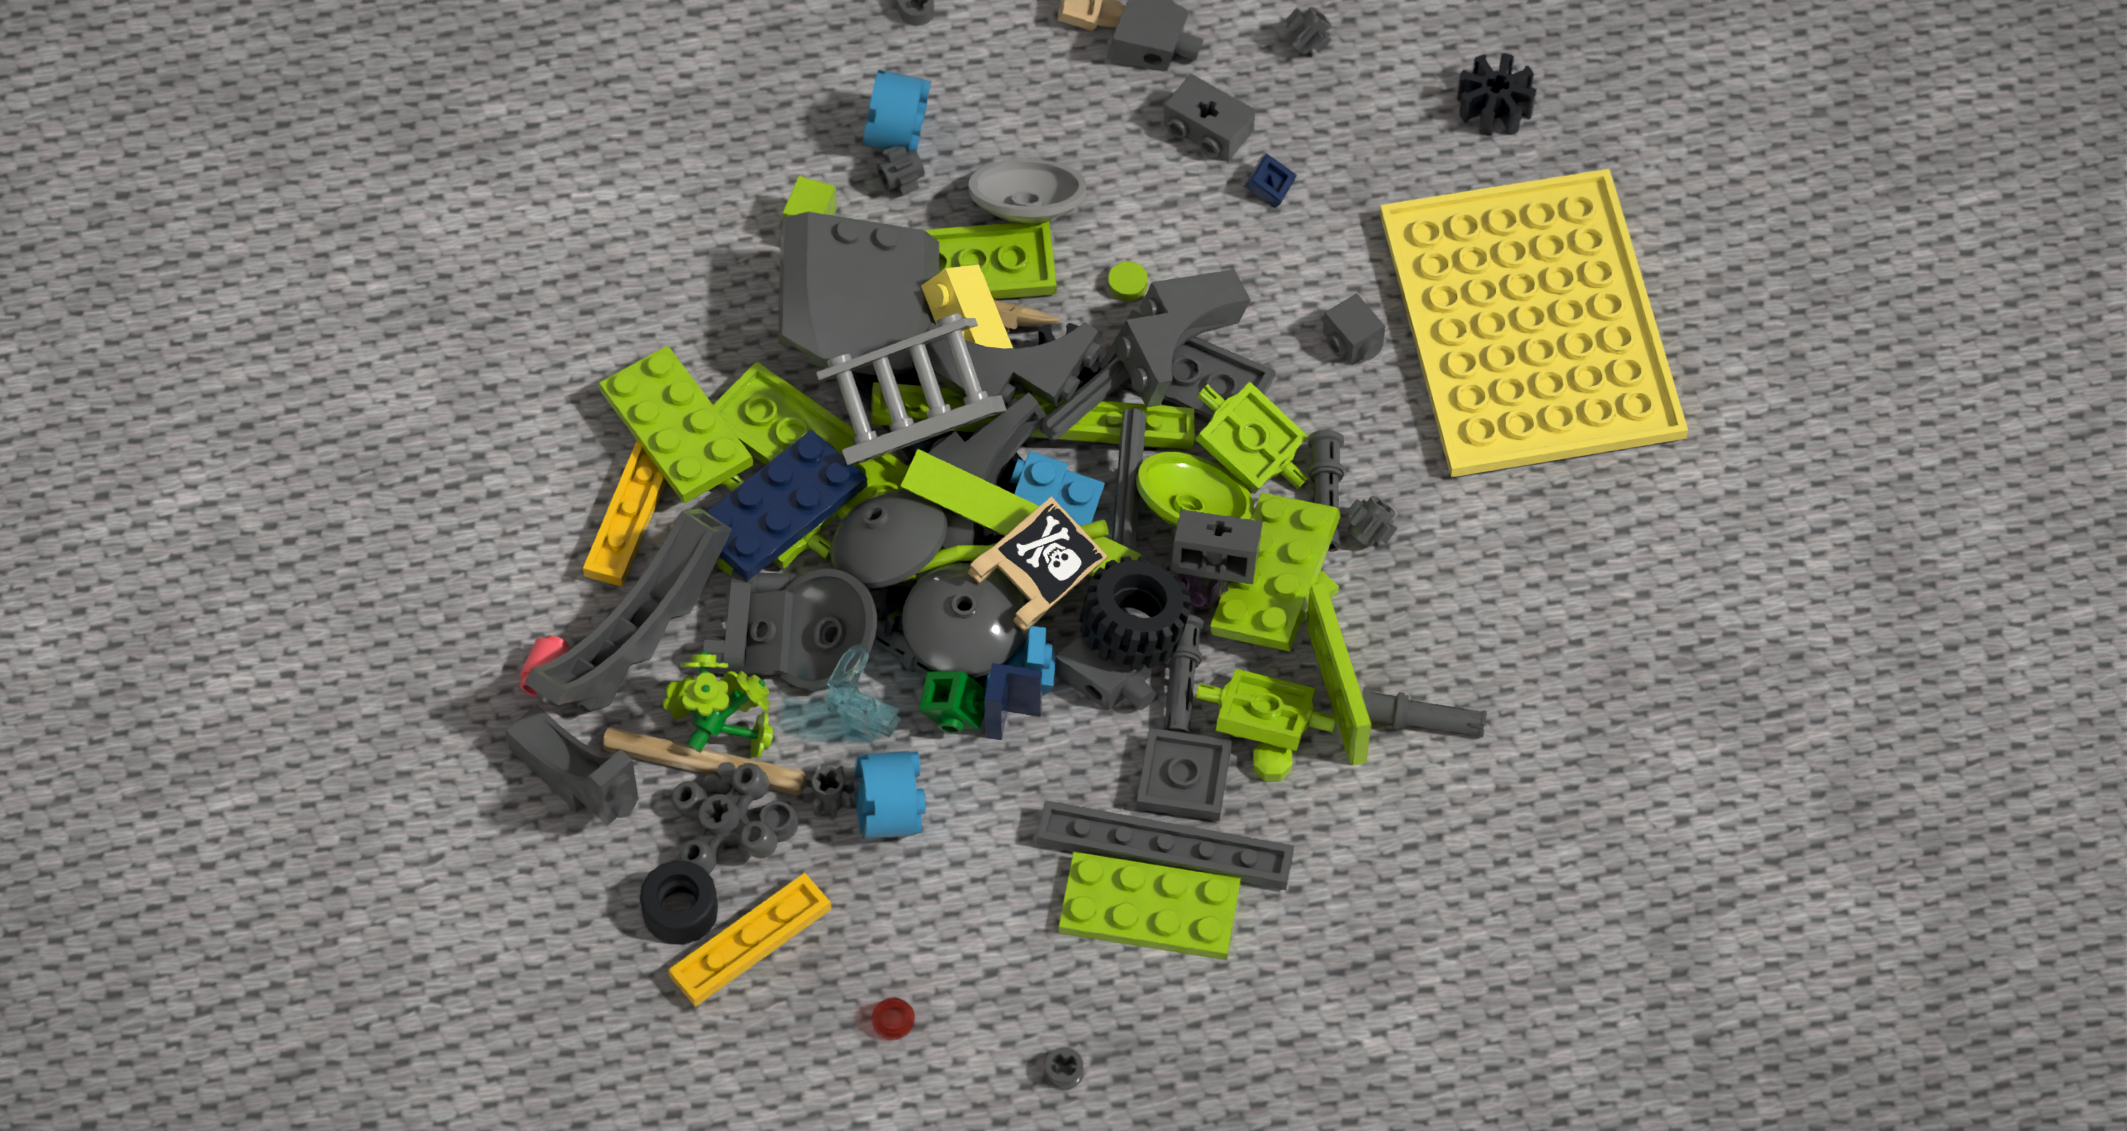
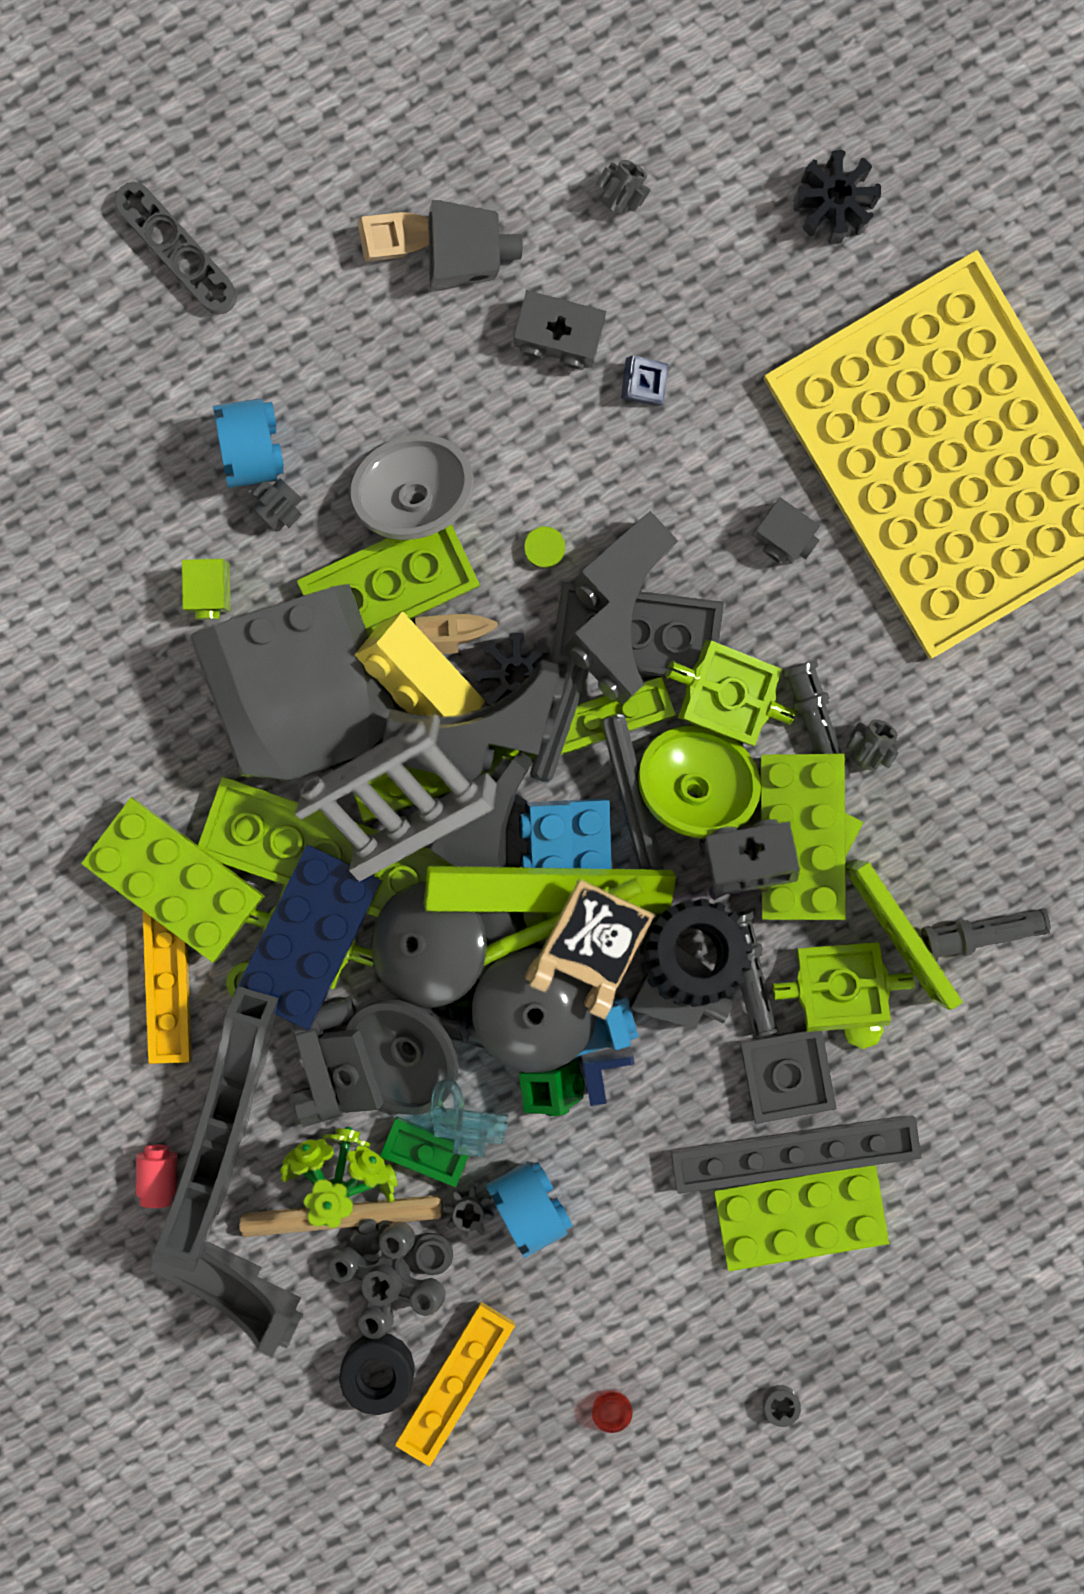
camera: 20 degrees left, 30 degrees up
(810, 728) = (422, 1152): none -> green plate

